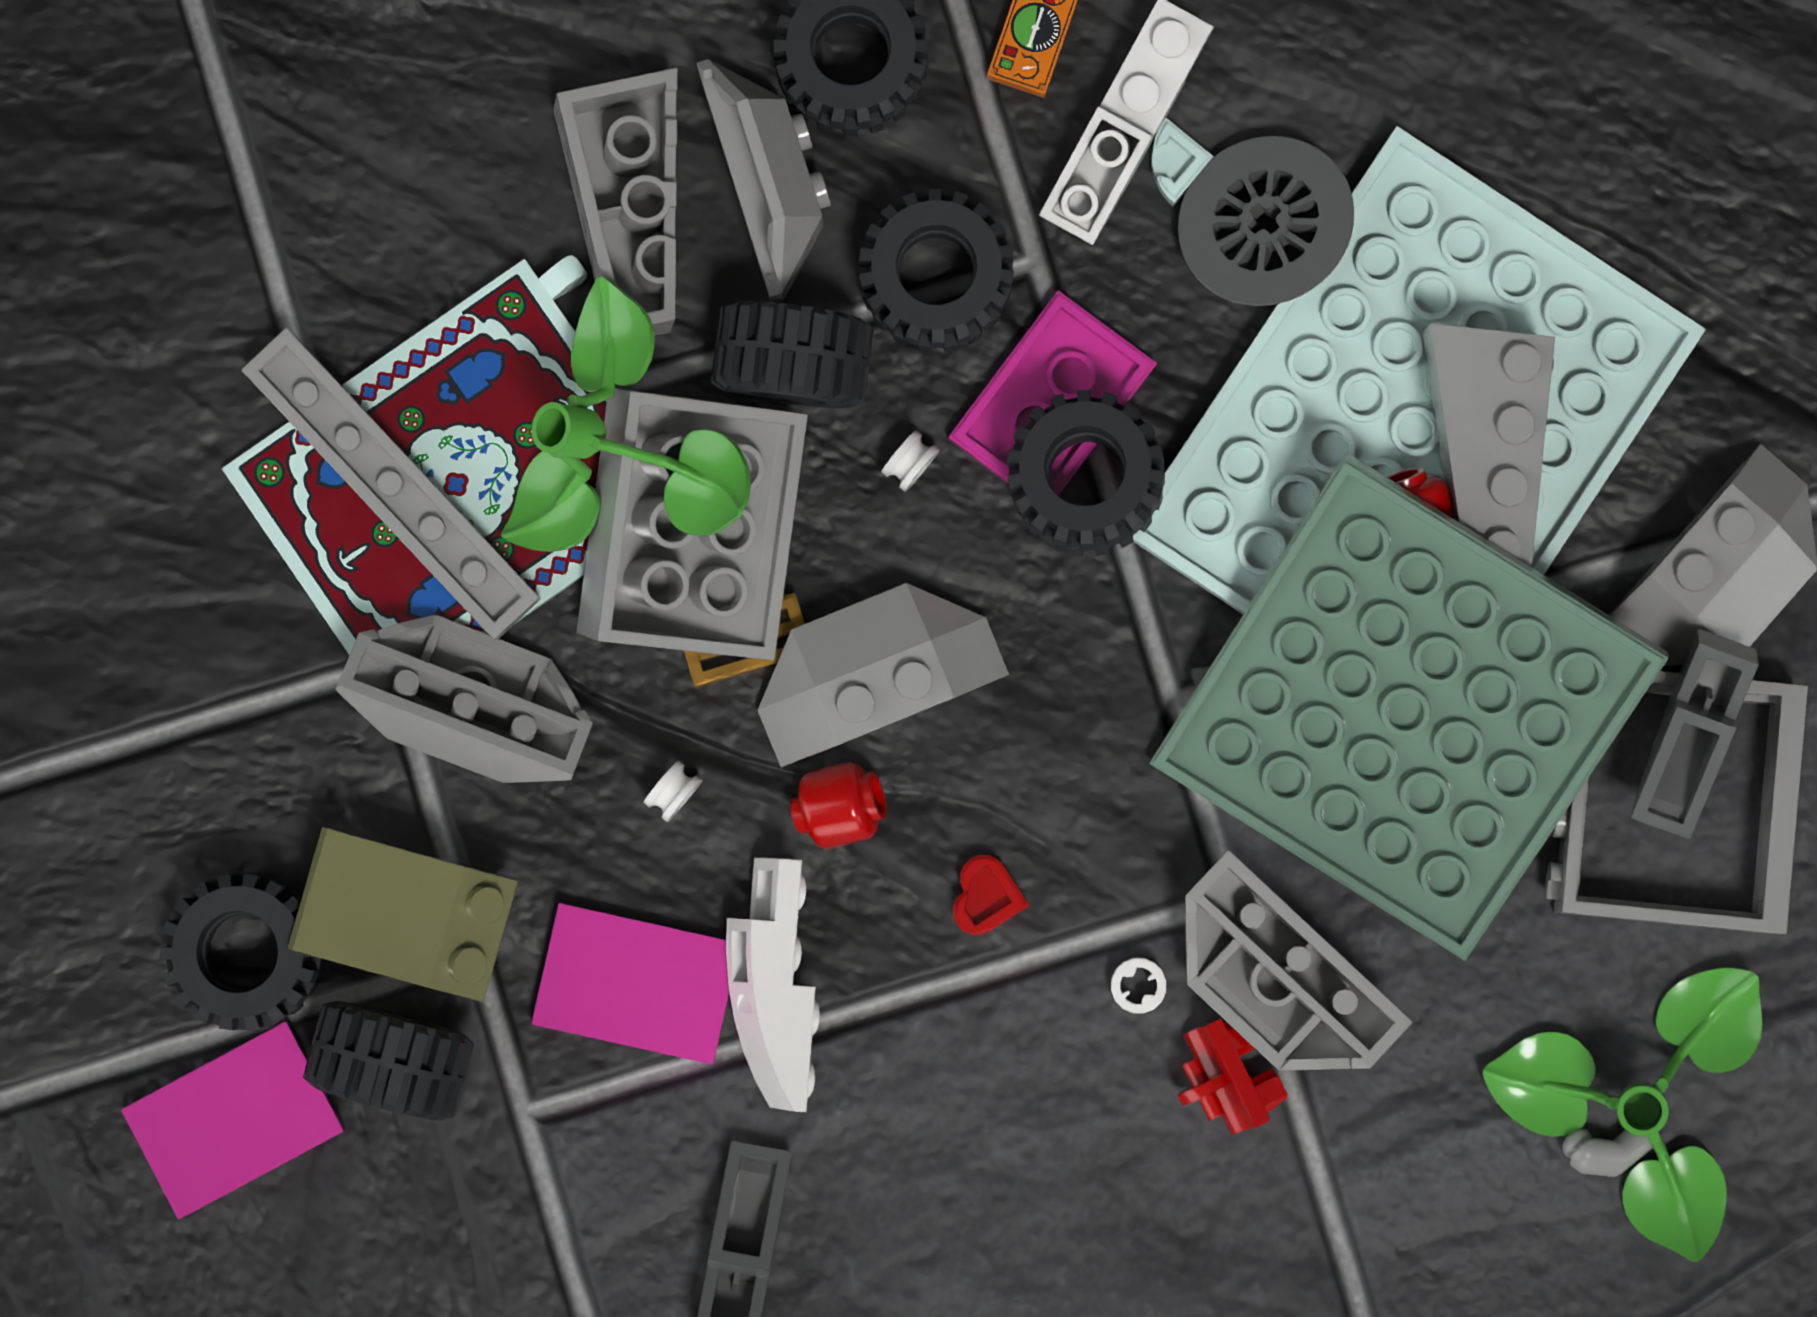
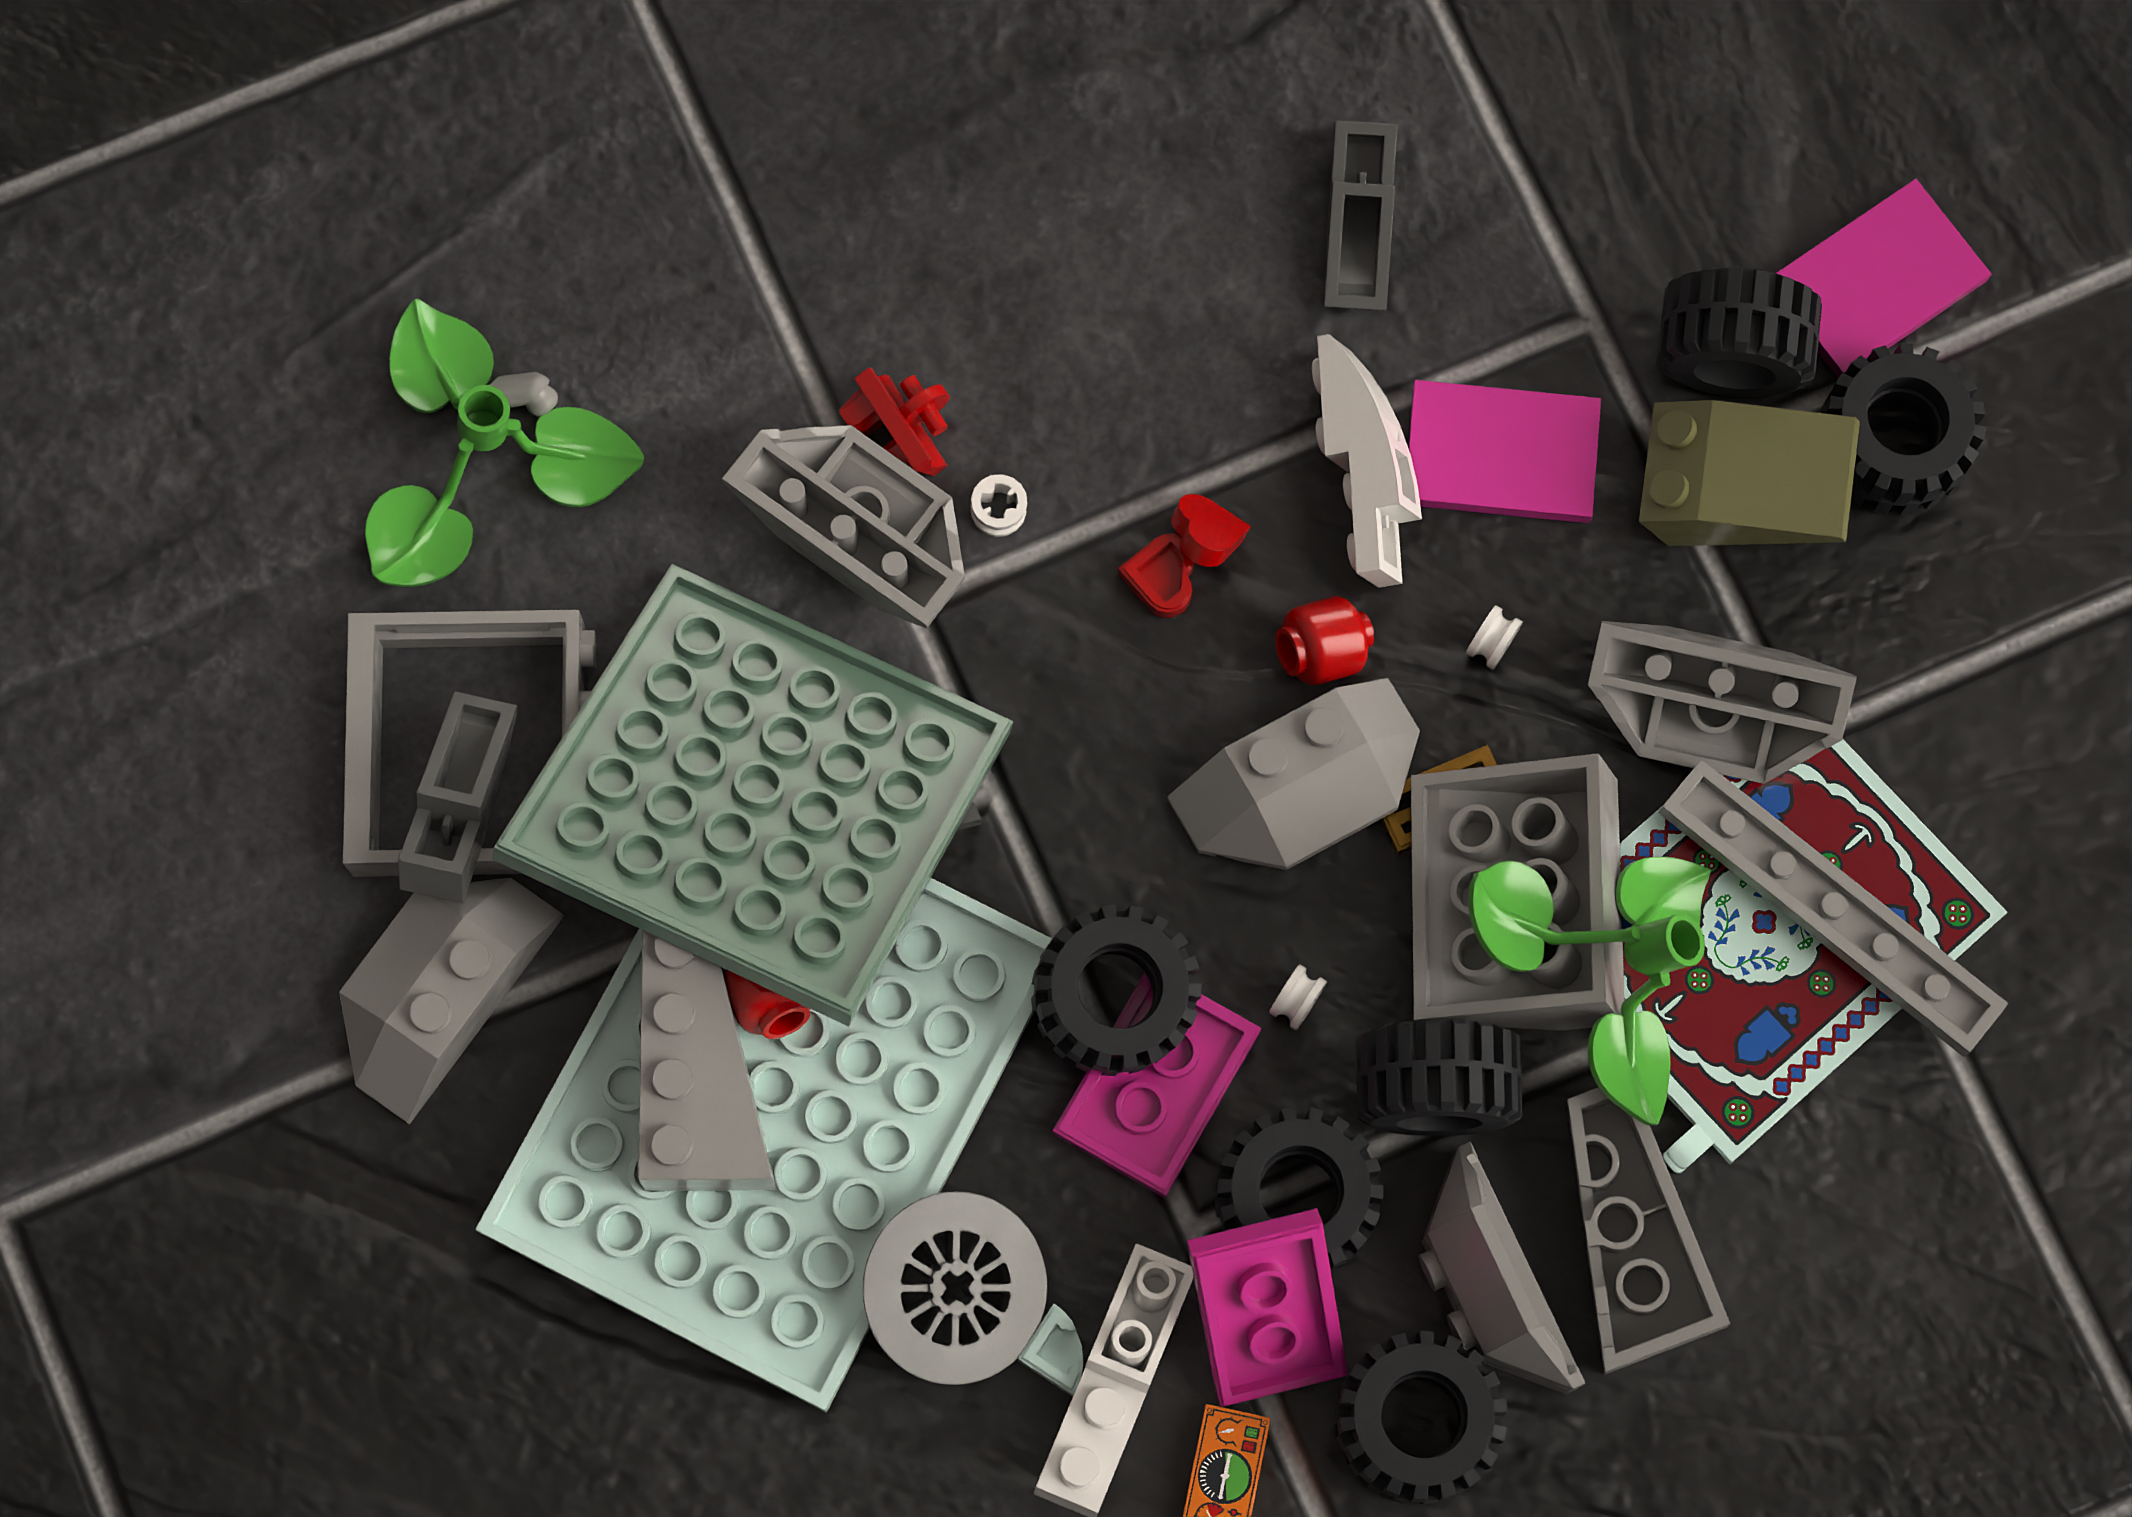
camera: 170 degrees right, 10 degrees down
(938, 932) = (1207, 530): none -> red tile
(980, 161) = (1268, 1307): none -> dark pink tile

